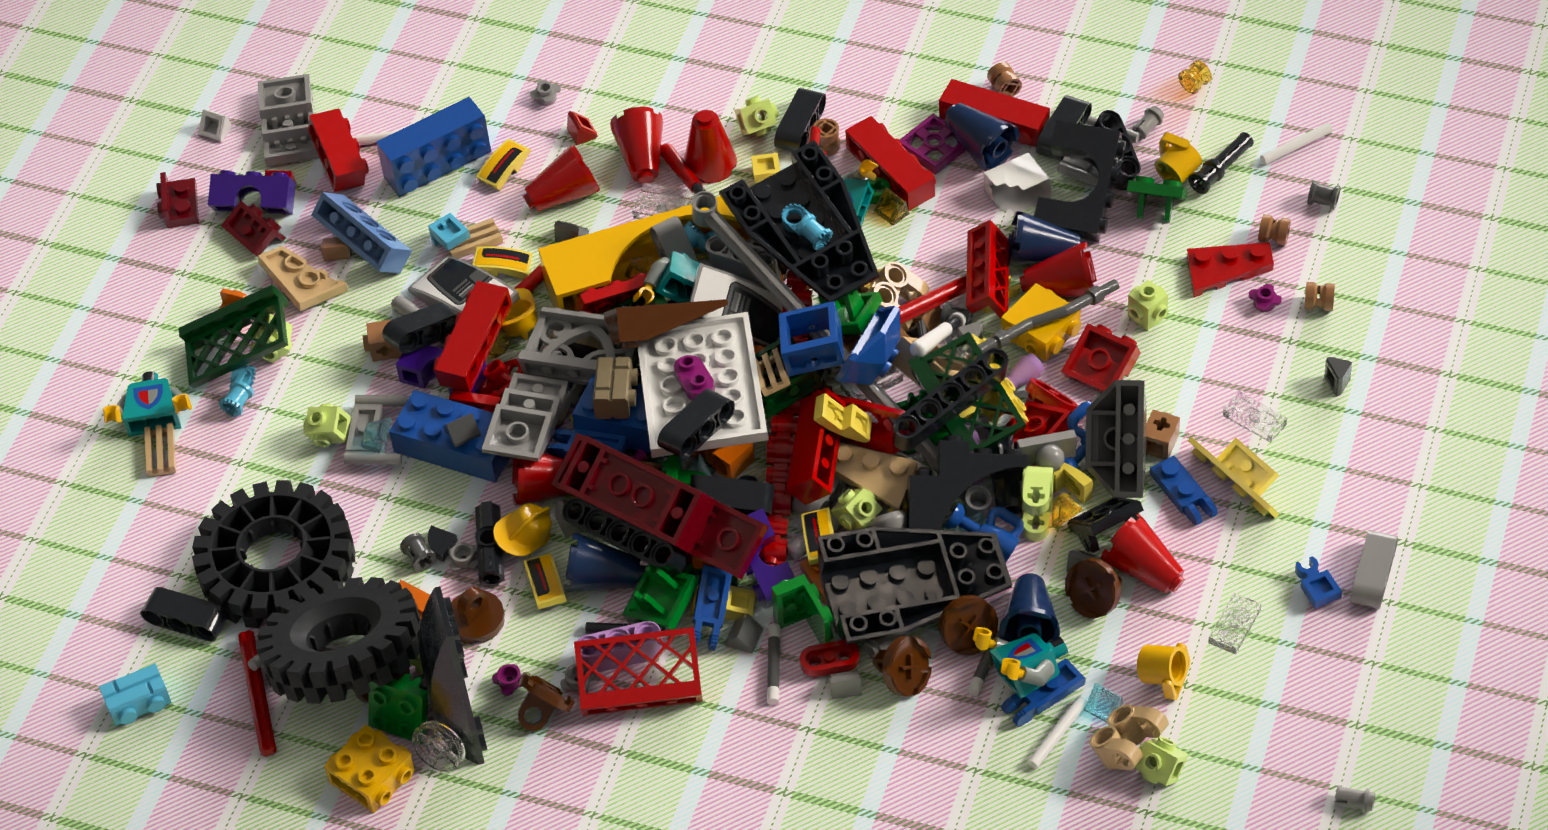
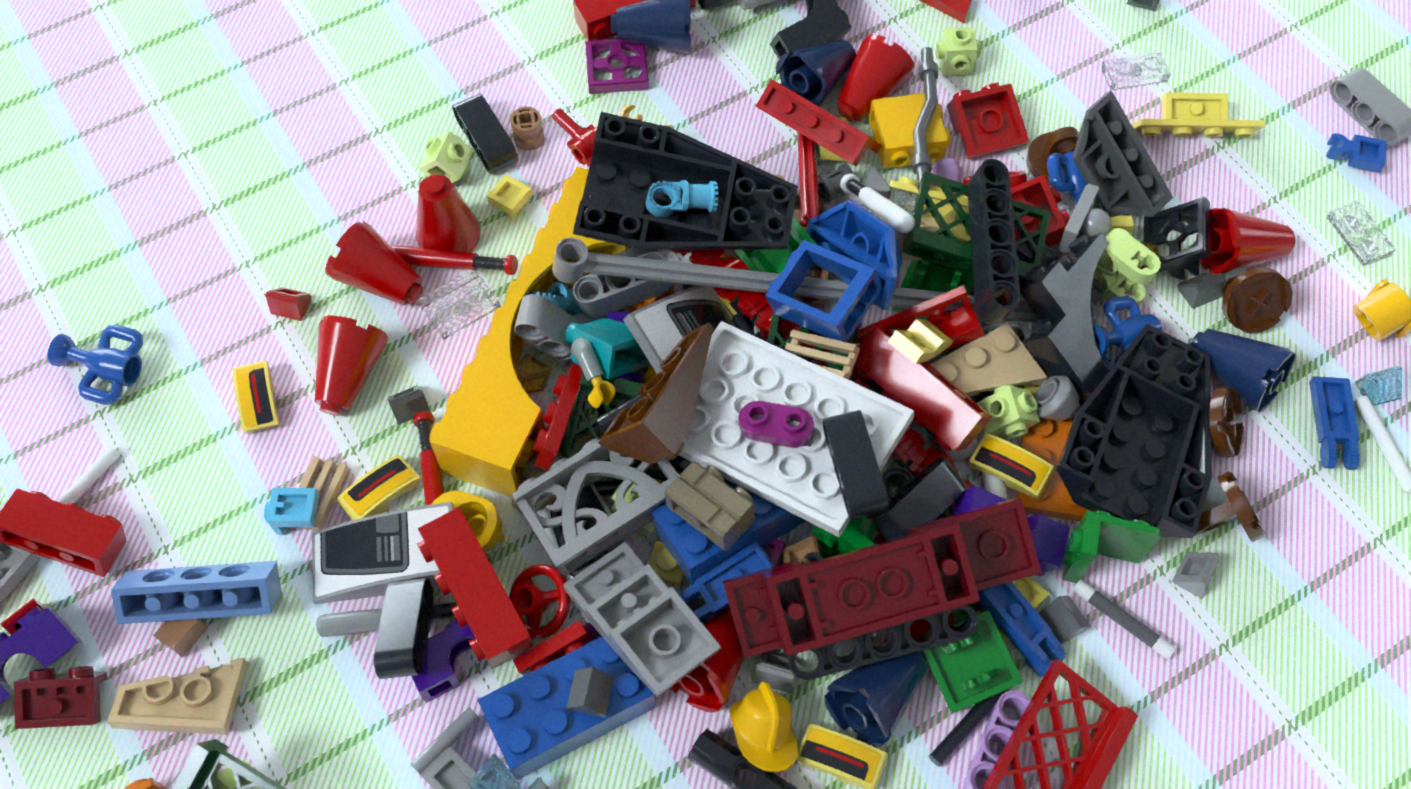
camera: 55 degrees left, 10 degrees up
(375, 343) = (358, 679): medium nougat brick -> none
(433, 146) = (169, 440): blue brick -> none
(454, 82) = (107, 363): none -> blue piece
(545, 93) = (213, 303): light grey plate -> none
(829, 658) = (1161, 568): red plate -> none
(895, 164) = (587, 99): red brick -> none
(982, 669) = (1264, 447): bar -> none
(1017, 184) = (731, 41): white piece -> none
(1023, 662) = (1308, 409): torso -> none
(1182, 489) = (1184, 168): blue hinge -> none

